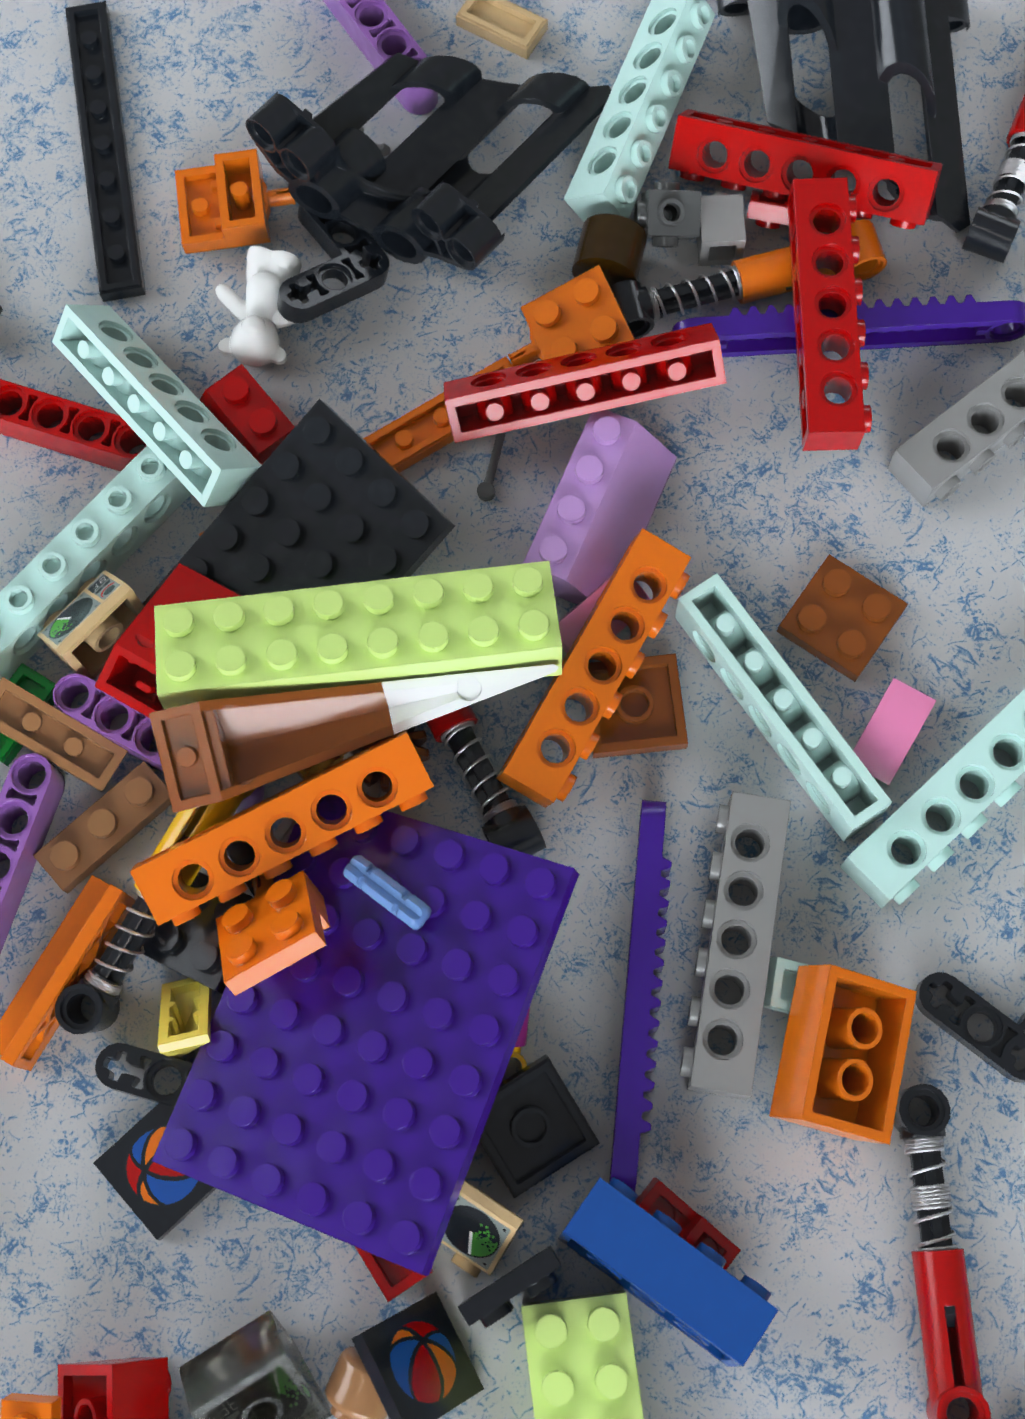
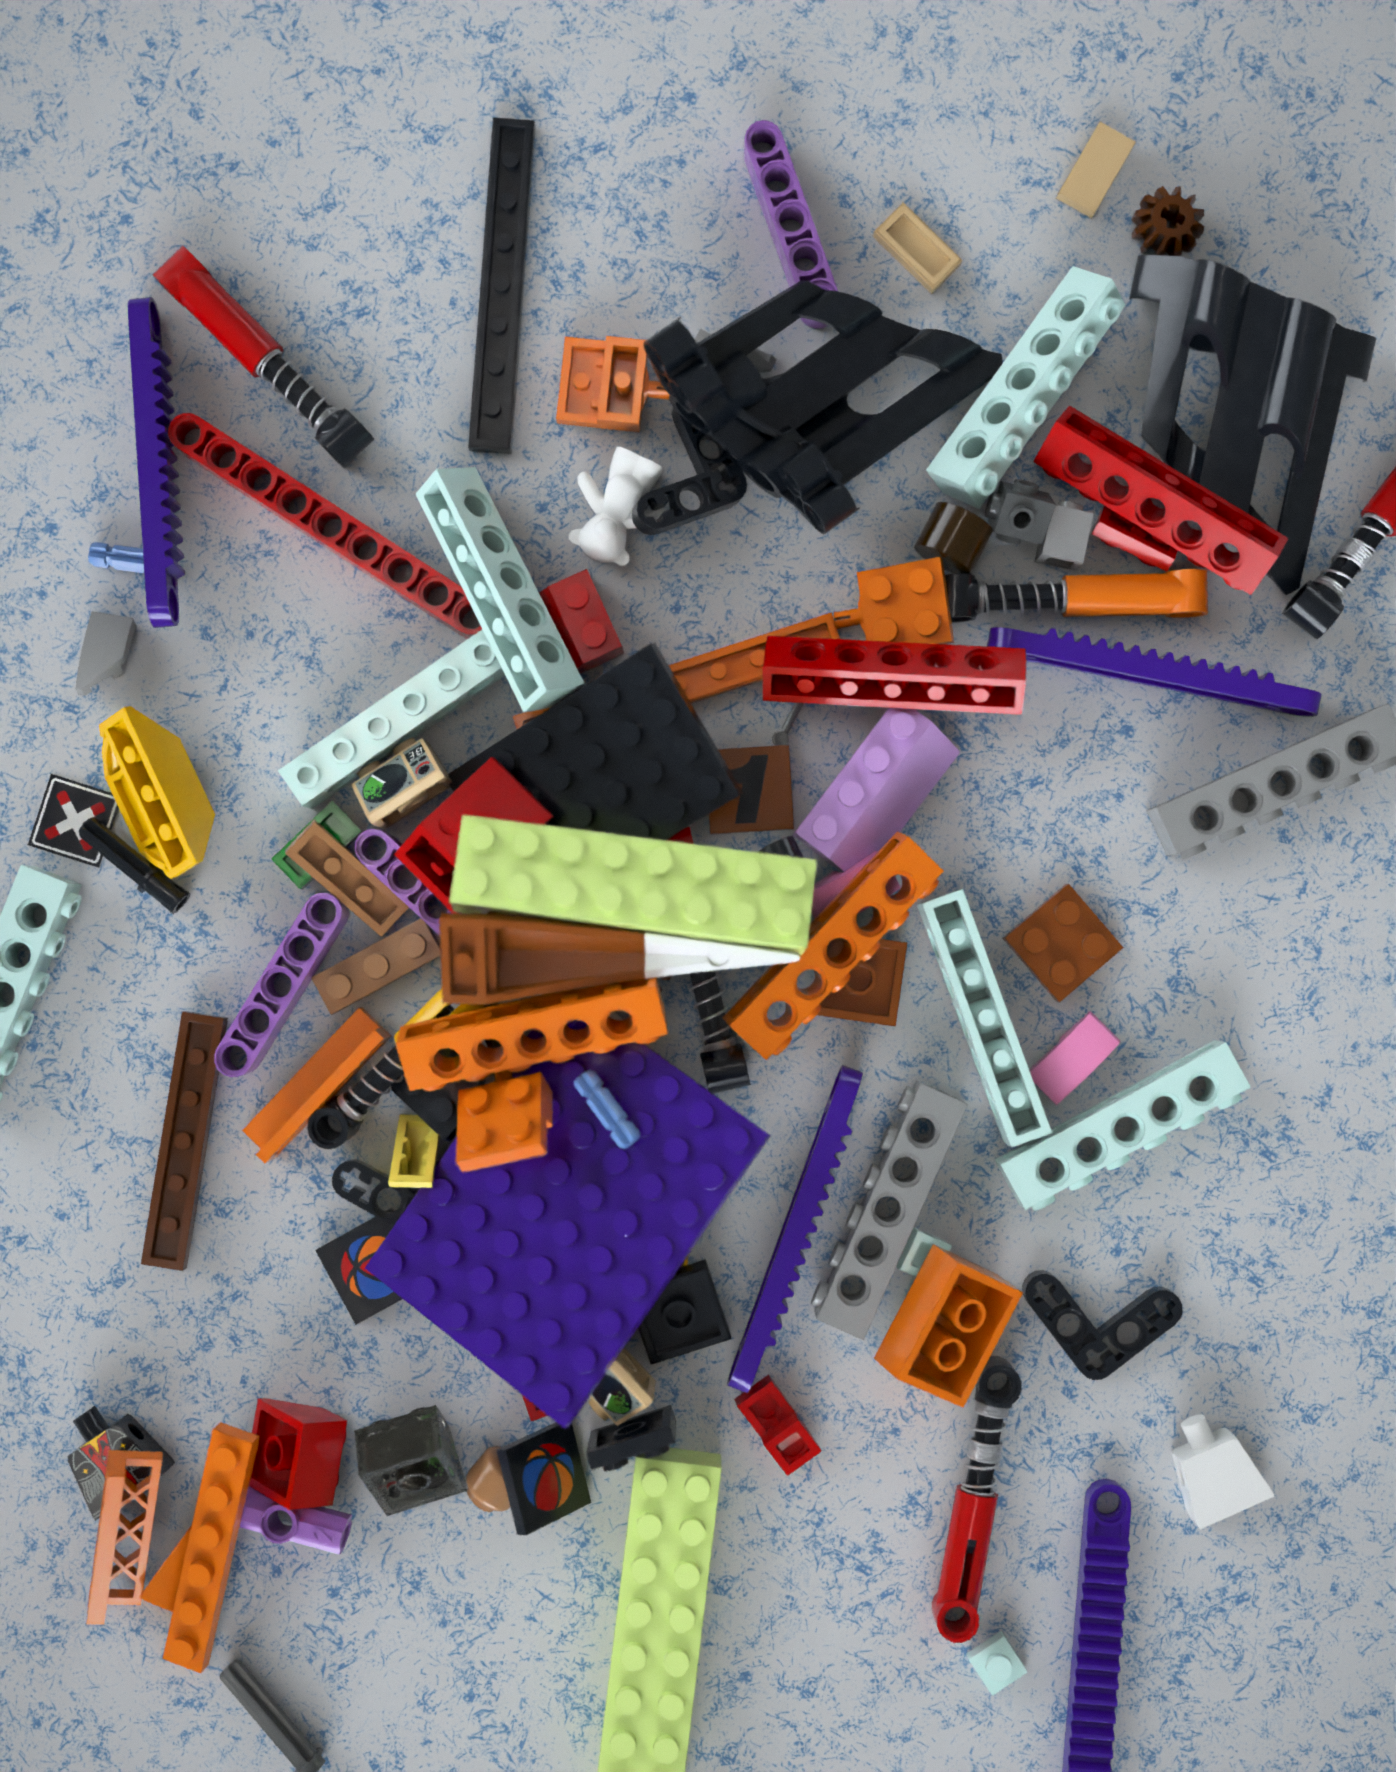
camera: 10 degrees right, 15 degrees up
(477, 540) = (767, 791): none -> dark orange tile
(669, 1273) = (757, 1461): blue slope -> none
(823, 423) = (1173, 560): red brick -> none

